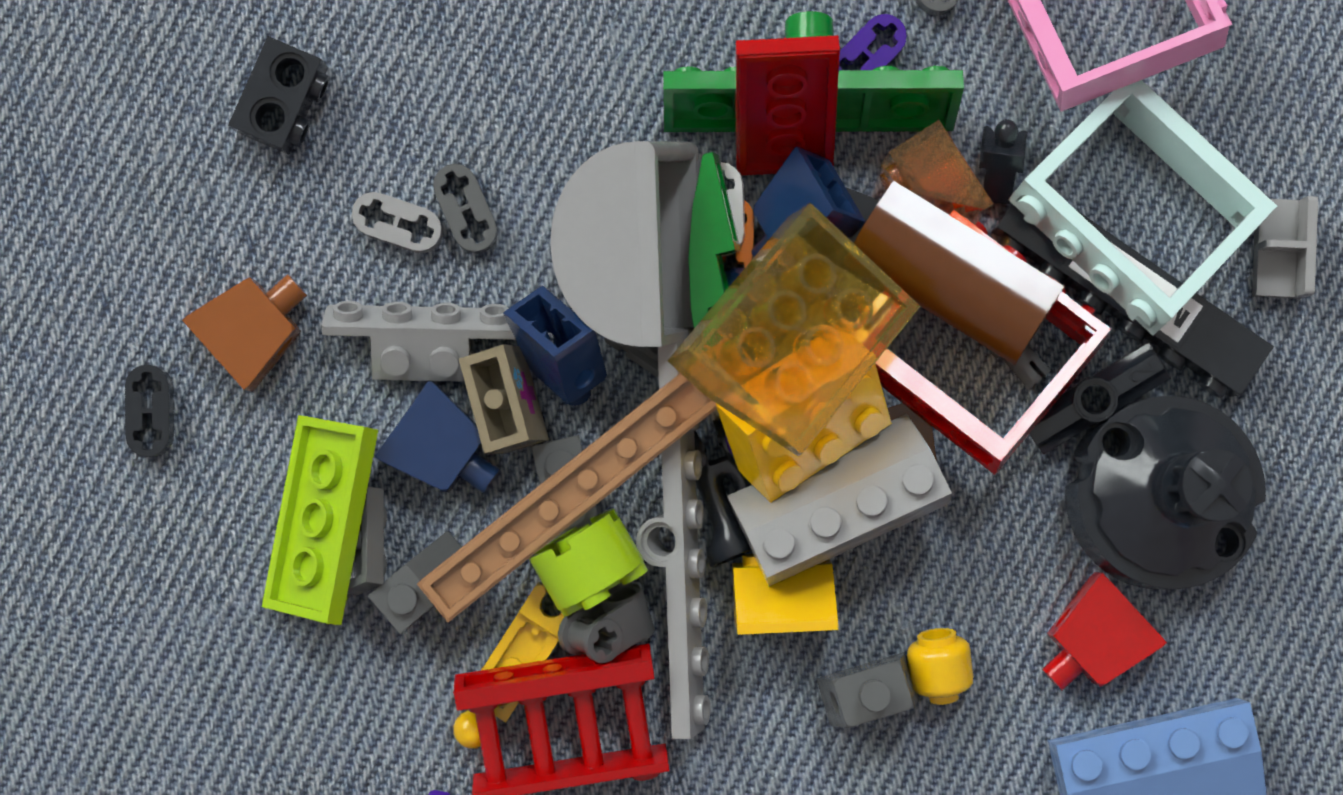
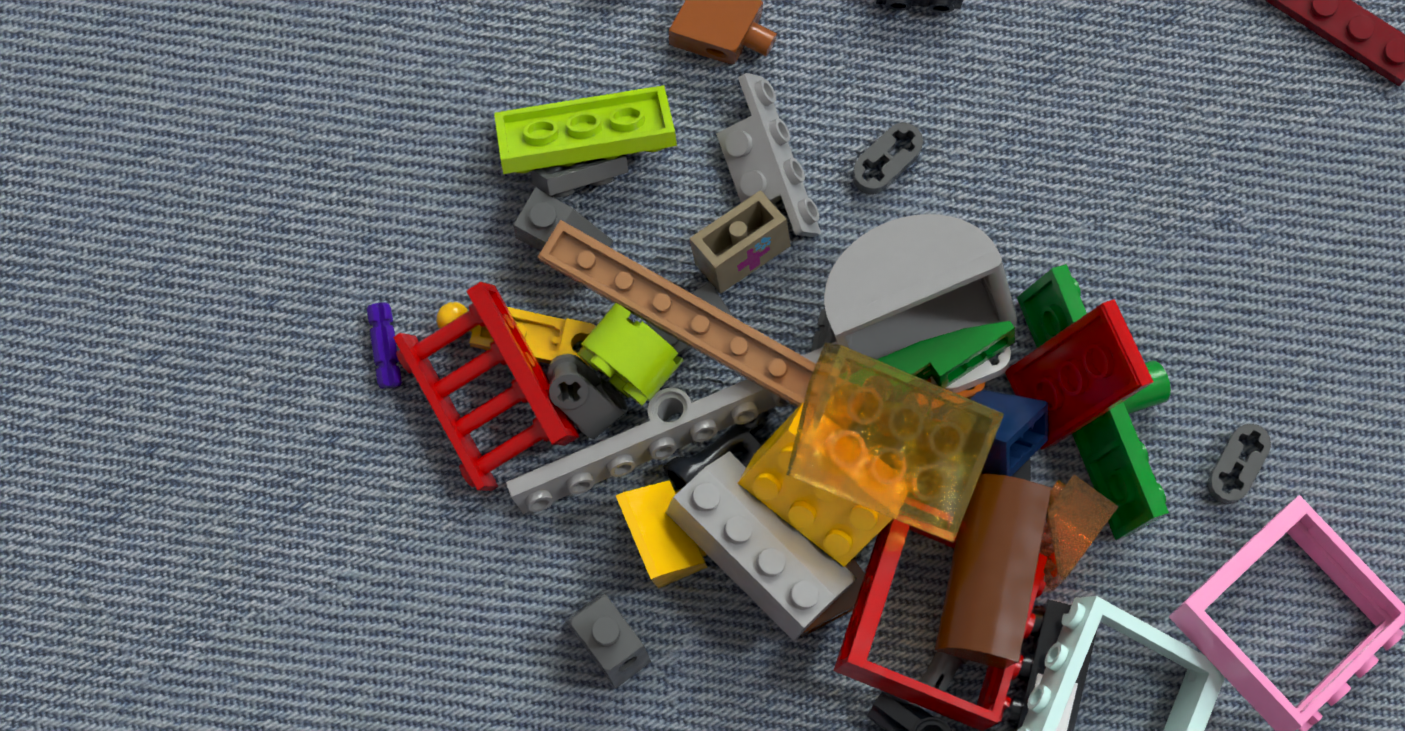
camera: 70 degrees right, 10 degrees down
(401, 212) = (844, 107): light grey beam -> none
(438, 444) = (682, 202): dark blue torso -> none
(574, 359) = (791, 279): dark blue torso -> none
(865, 37) = (1162, 434): dark purple beam -> none
(940, 665) = (650, 692): yellow head -> none
(1002, 157) = (1109, 582): black piece -> none

